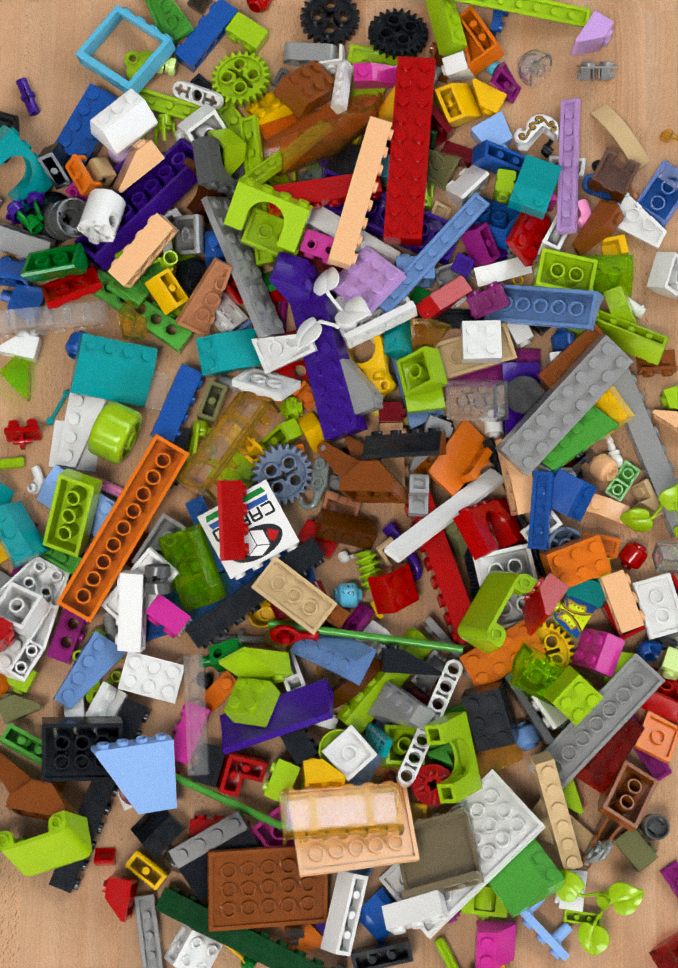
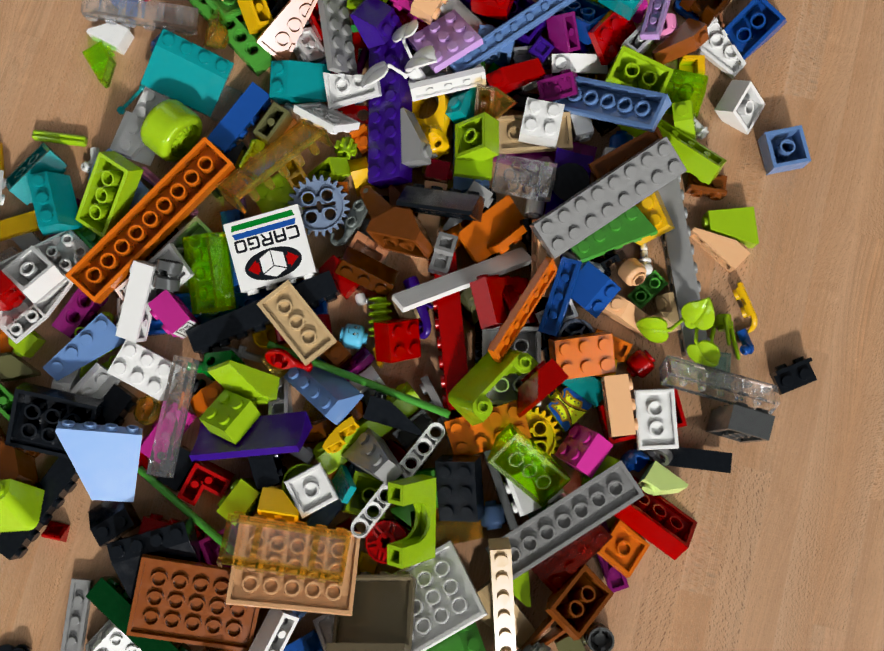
camera: 20 degrees right, 0 degrees up
(22, 435) = (91, 116): red hips -> none
(120, 894) = (52, 576): red slope -> none
(147, 870) = (89, 555): yellow brick -> none
(163, 716) = (147, 410): none -> clear yellow hair
(231, 520) = (251, 233): red slope -> none
(360, 700) = (335, 439): none -> yellow slope
(509, 533) = (522, 310): none -> orange plate
(573, 695) = (547, 487): lime brick -> none

